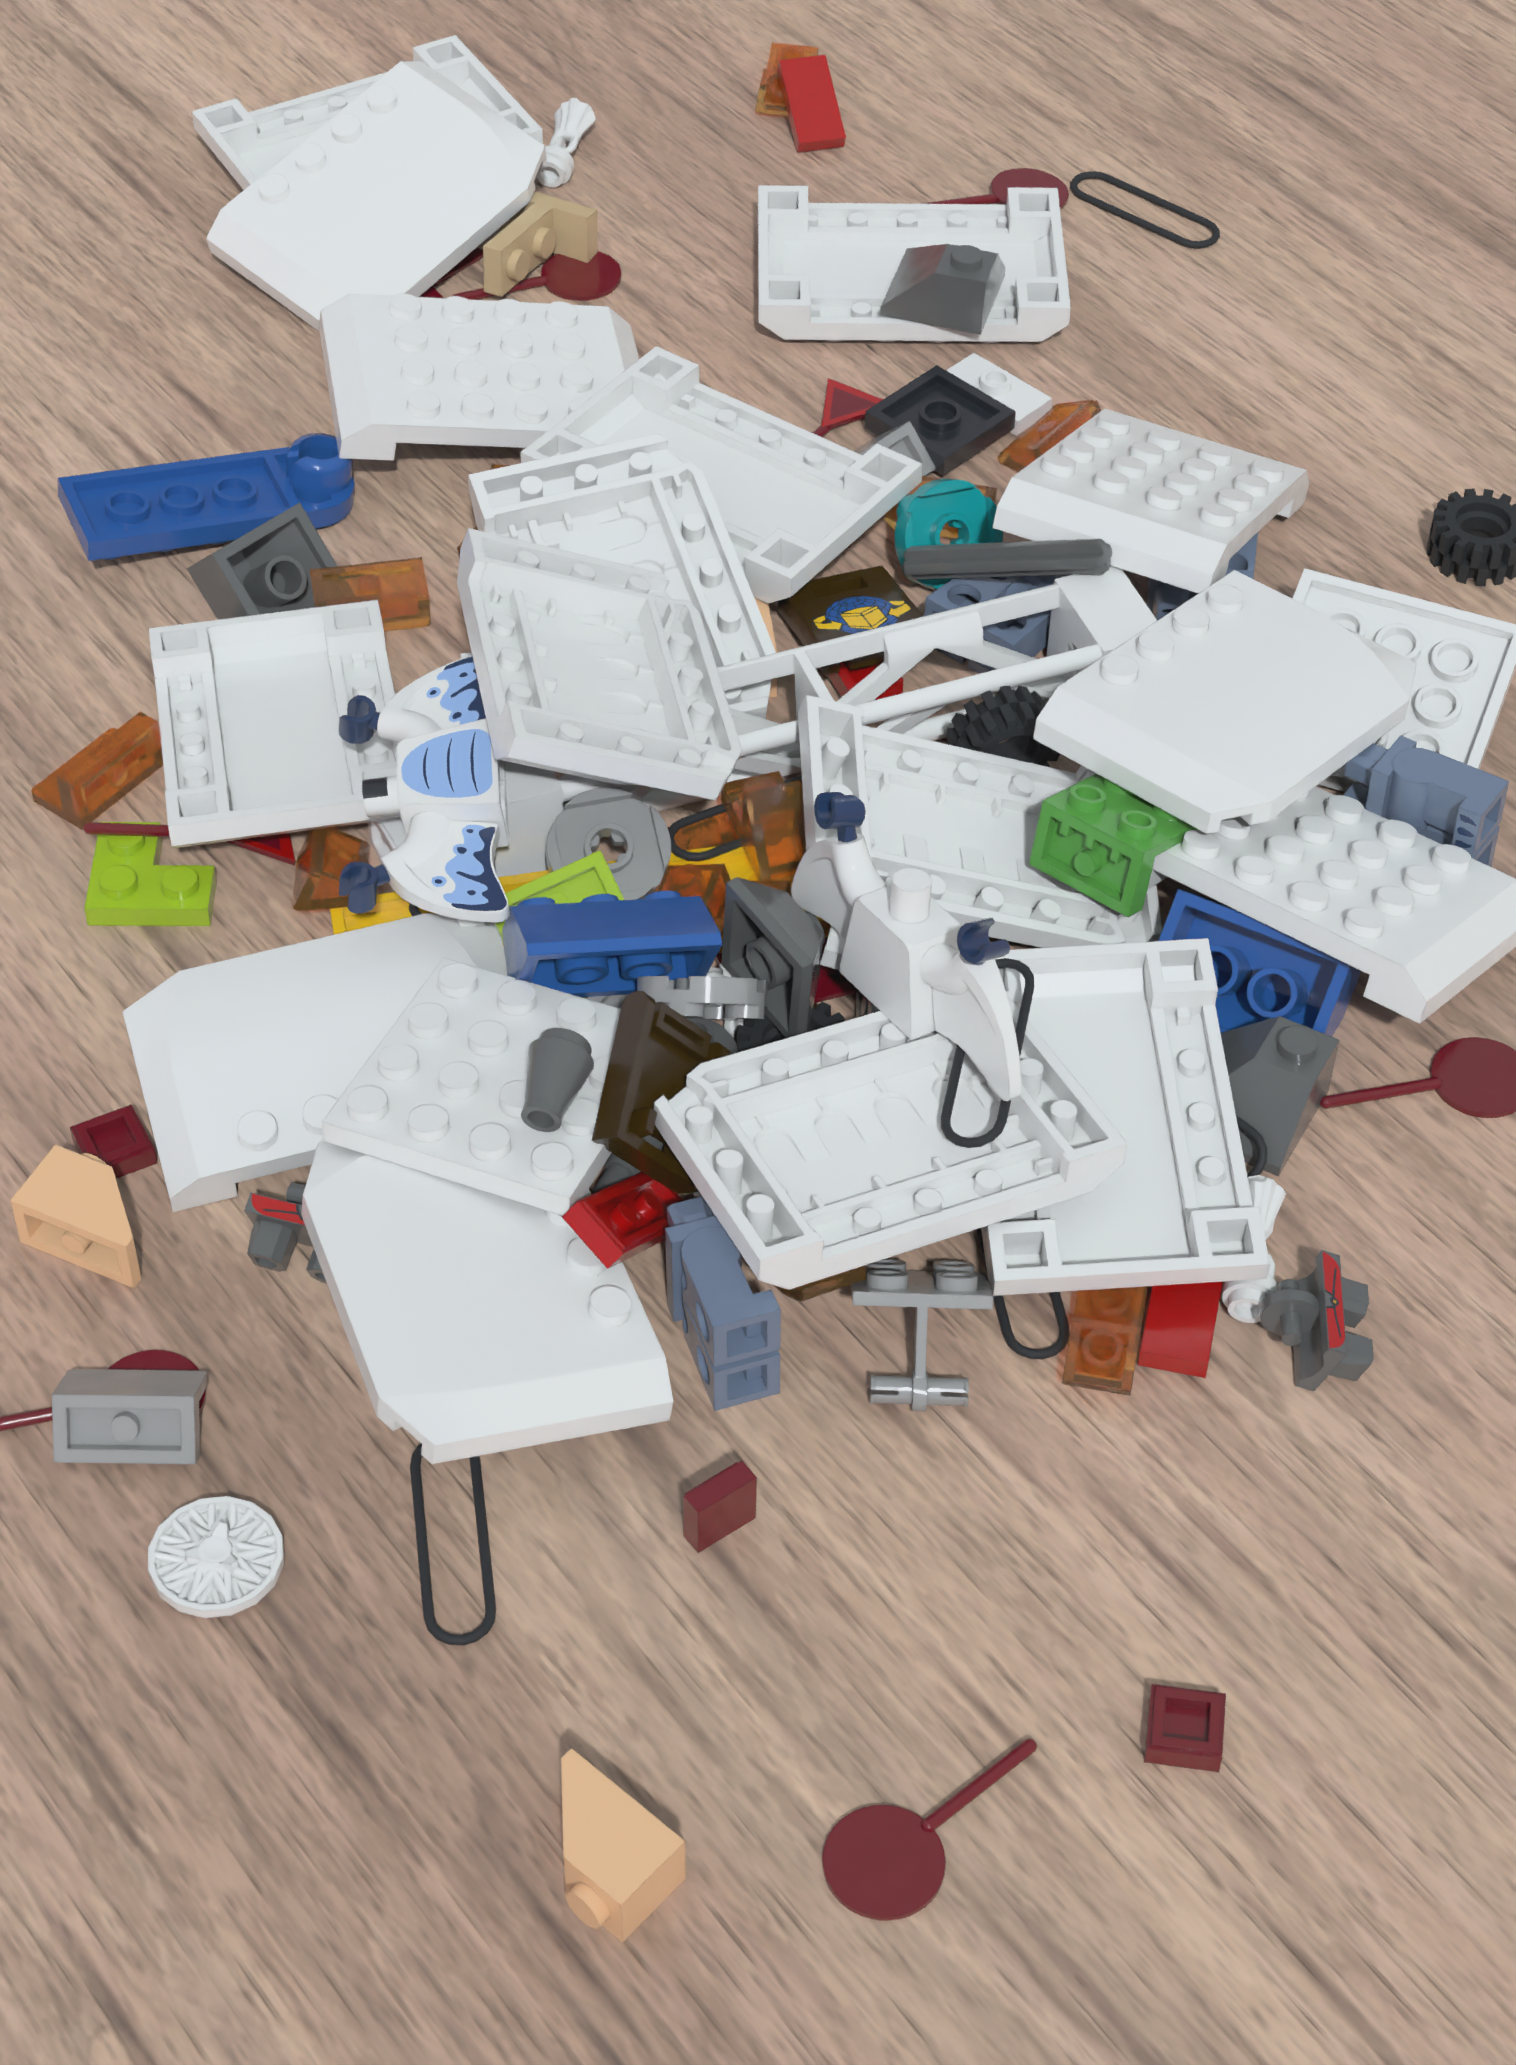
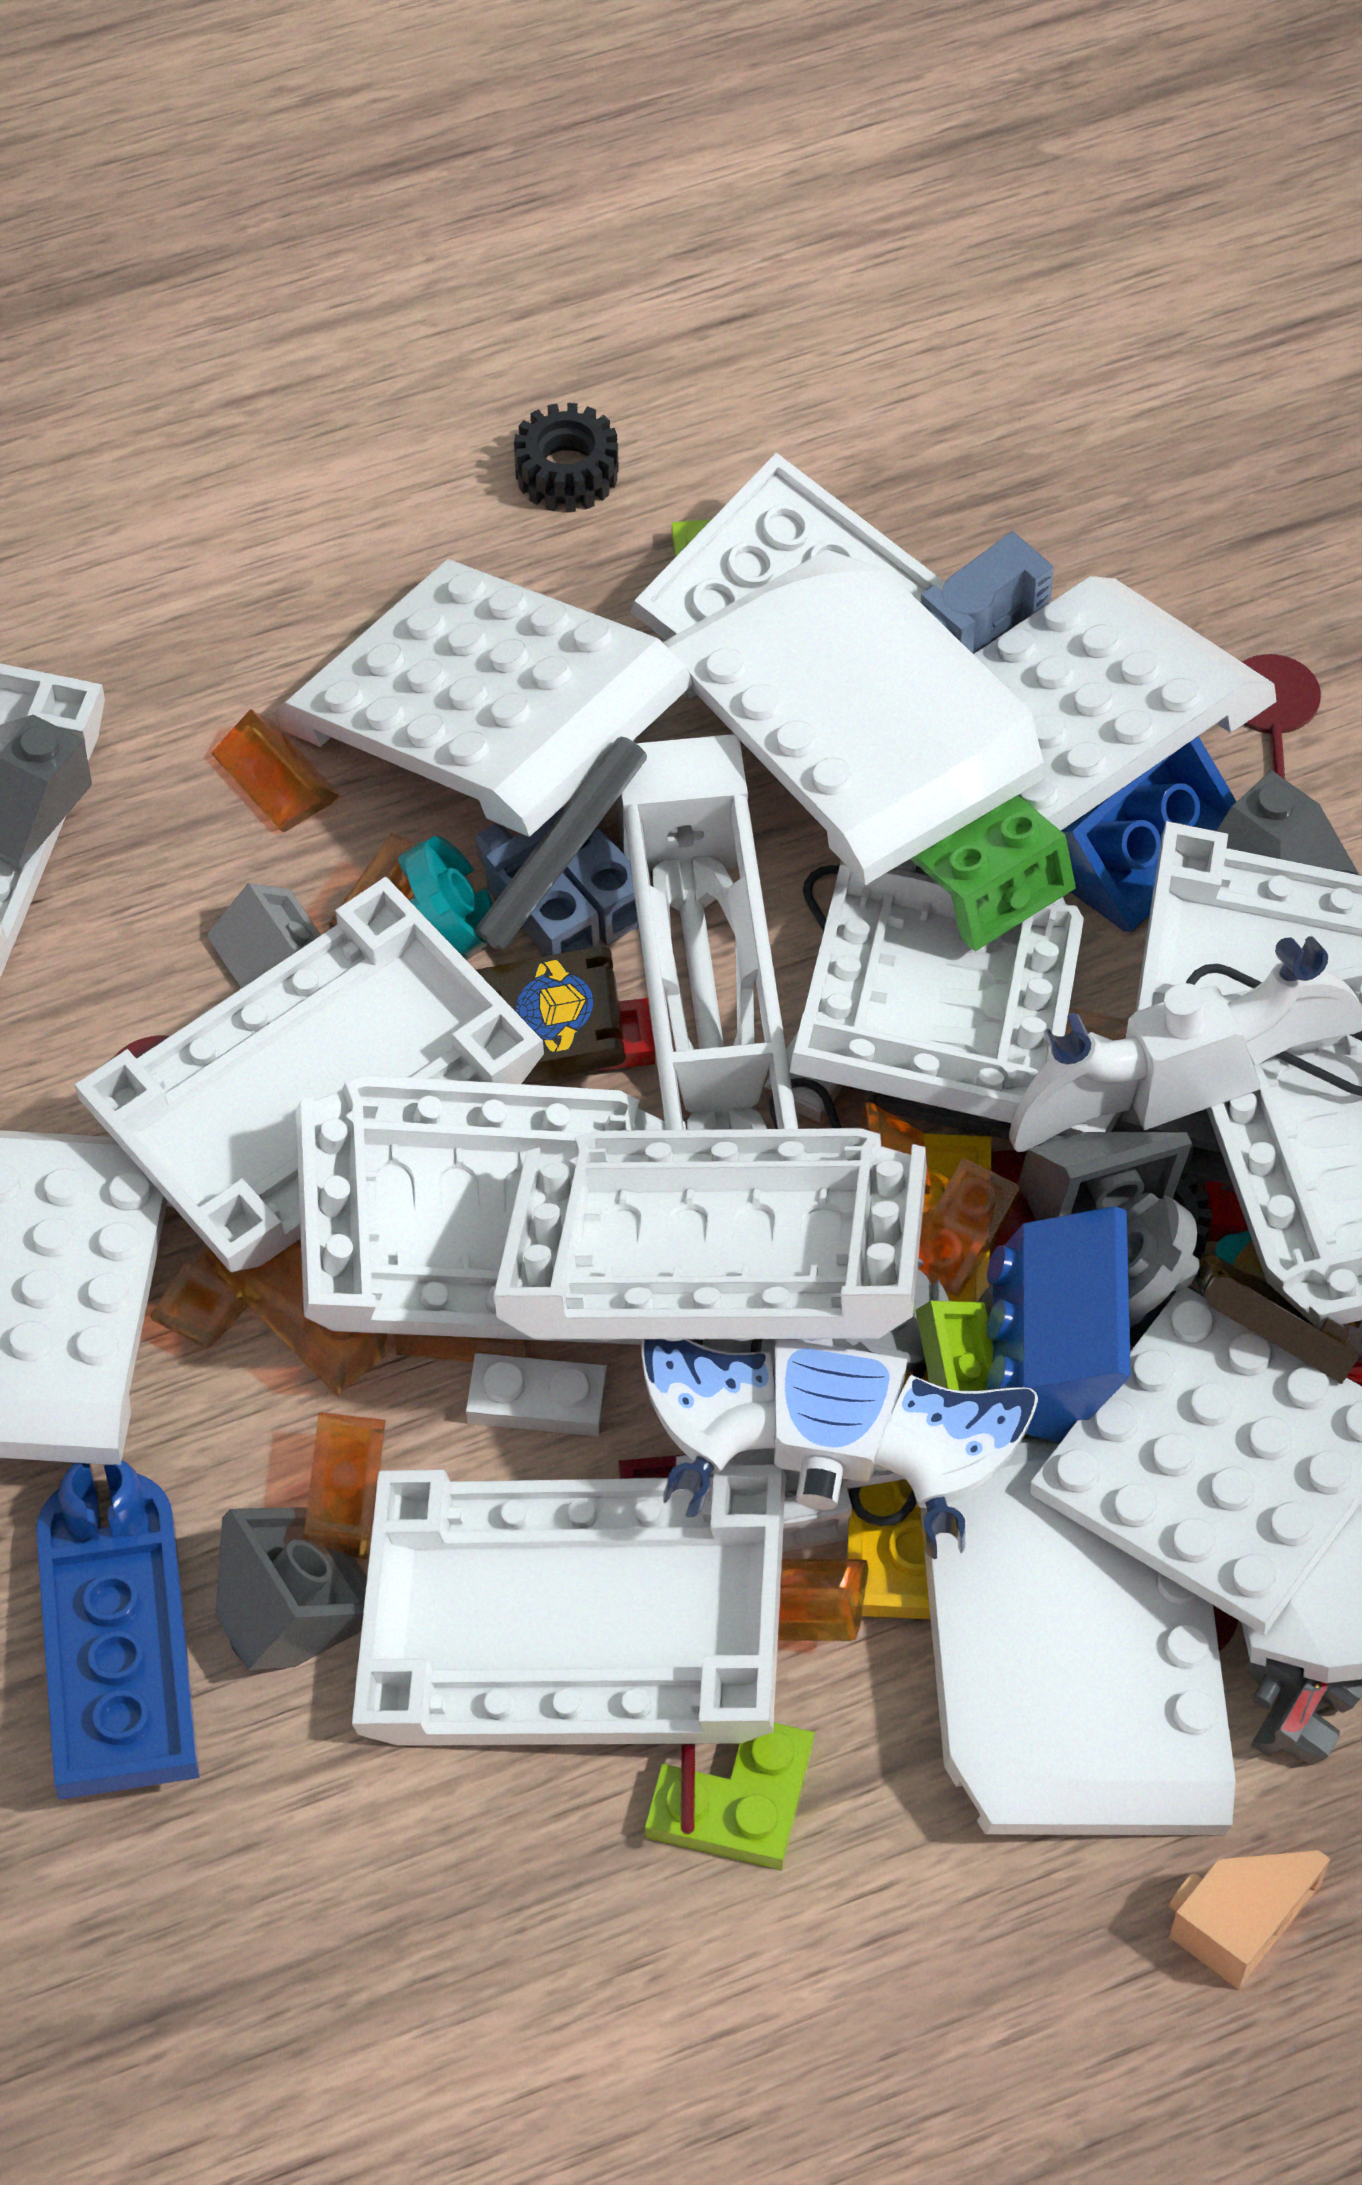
camera: 75 degrees left, 10 degrees up
(102, 772) = (550, 1822): clear orange panel -> none
(117, 1140) = (1130, 1877): dark red tile -> none
(555, 1074) = (1286, 1390): dark grey cone -> none
(843, 406) = (140, 949): piece -> none
(947, 416) = (210, 857): black plate -> none
(1001, 385) = (176, 803): white plate -> none
(1001, 718) = (790, 925): black tyre -> none

